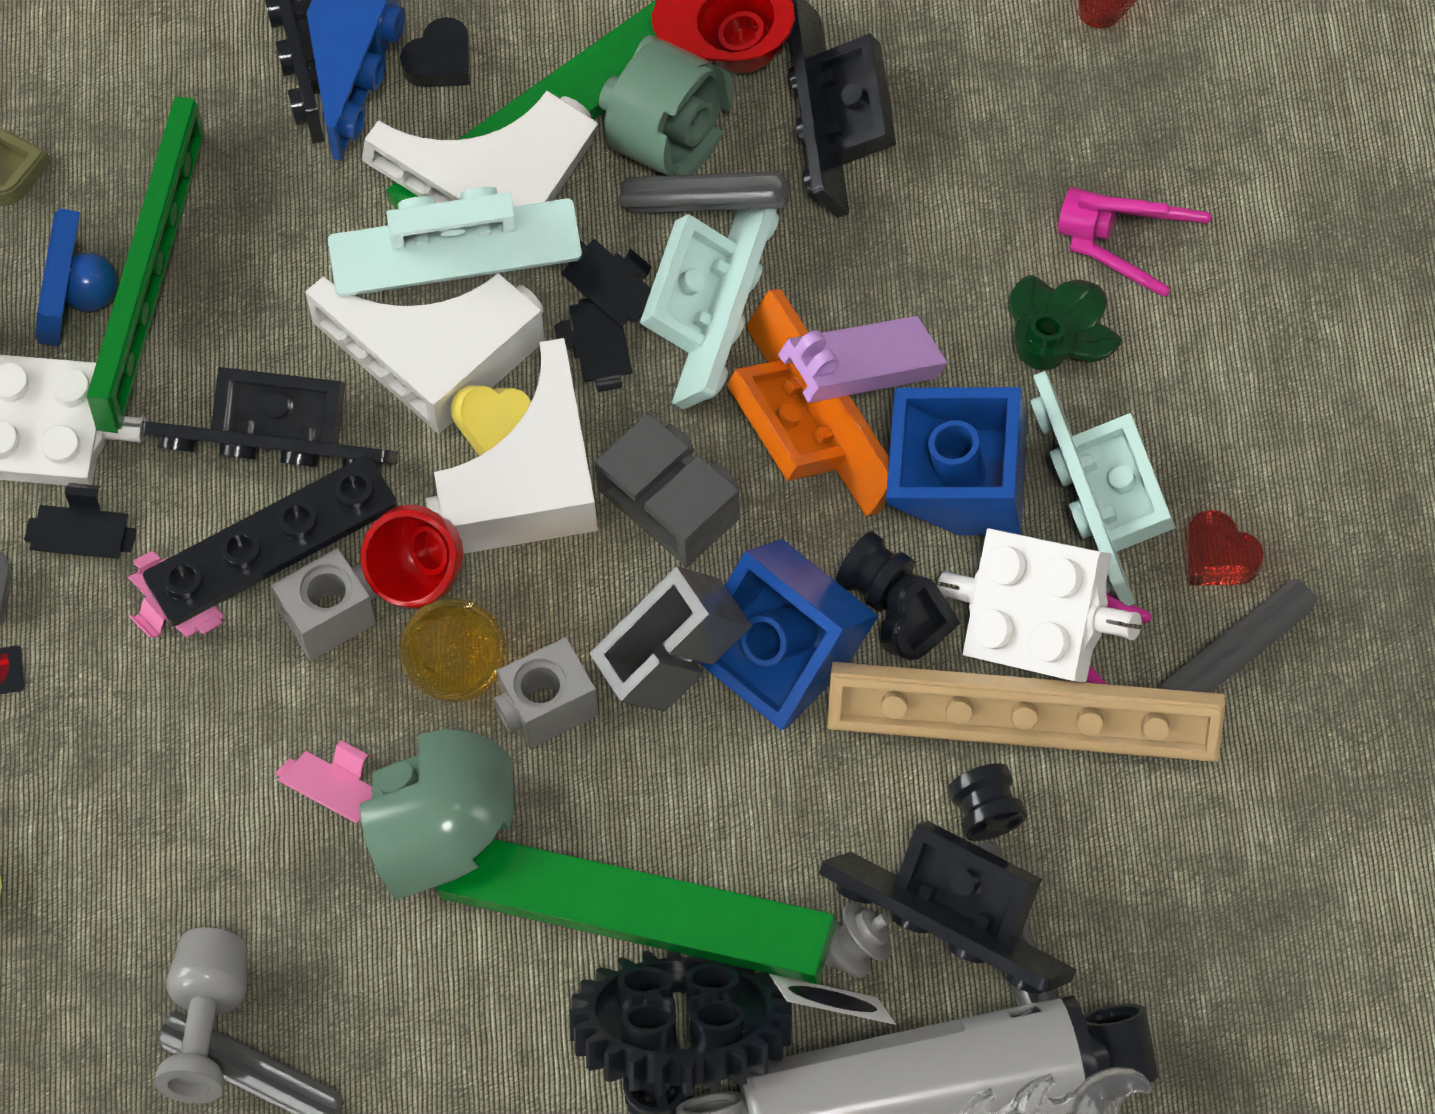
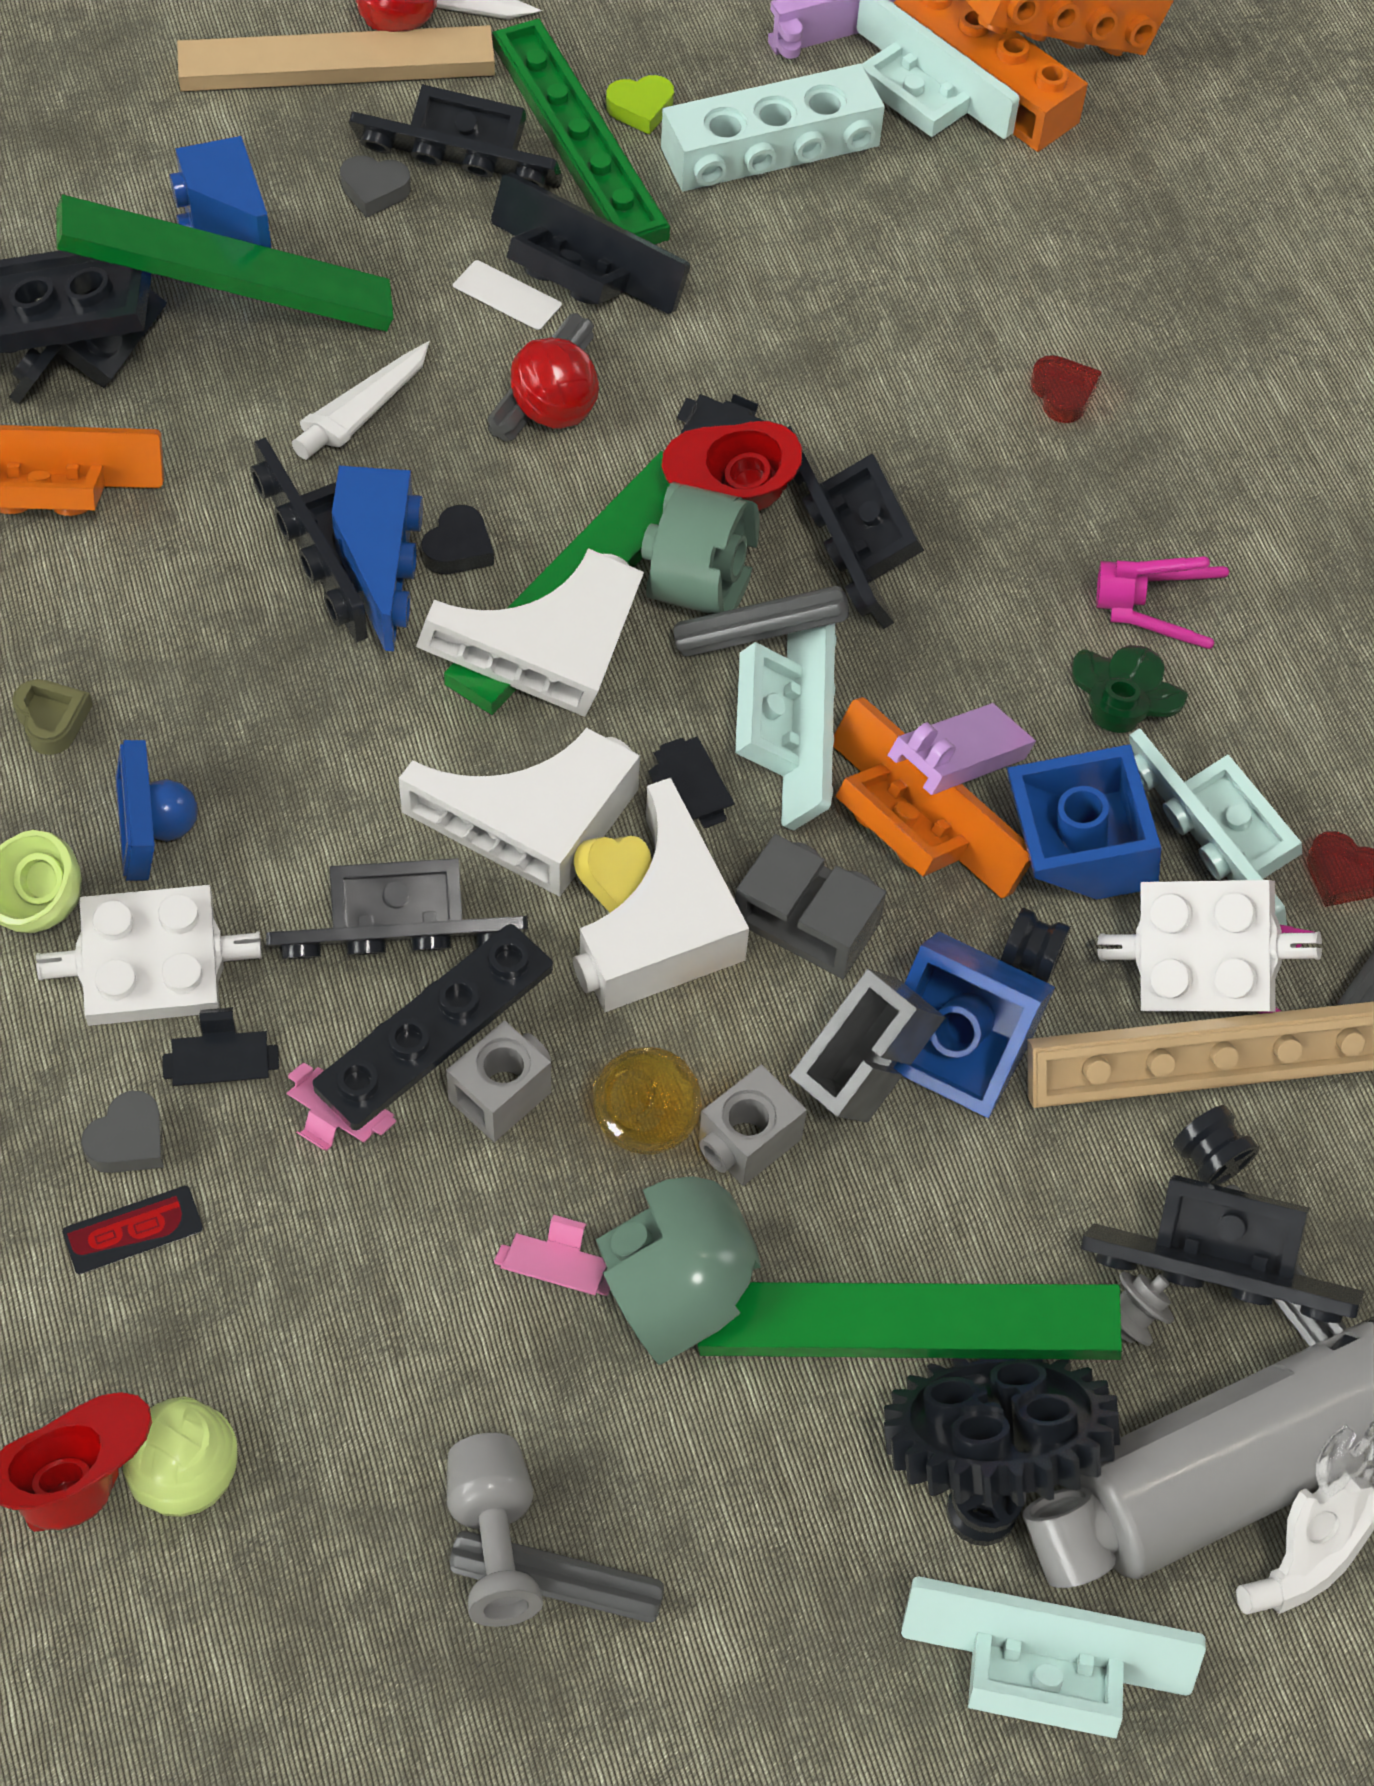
camera: 20 degrees left, 5 degrees down
(145, 266) = (226, 785): green tile -> none
(411, 556) = (585, 1013): red piece -> none
(453, 241) = (537, 702): light aqua bracket -> none
(611, 281) = (687, 721): black piece -> none
(832, 999) = (1135, 1372): sticker -> none
(916, 618) = (1089, 982): black tile -> none

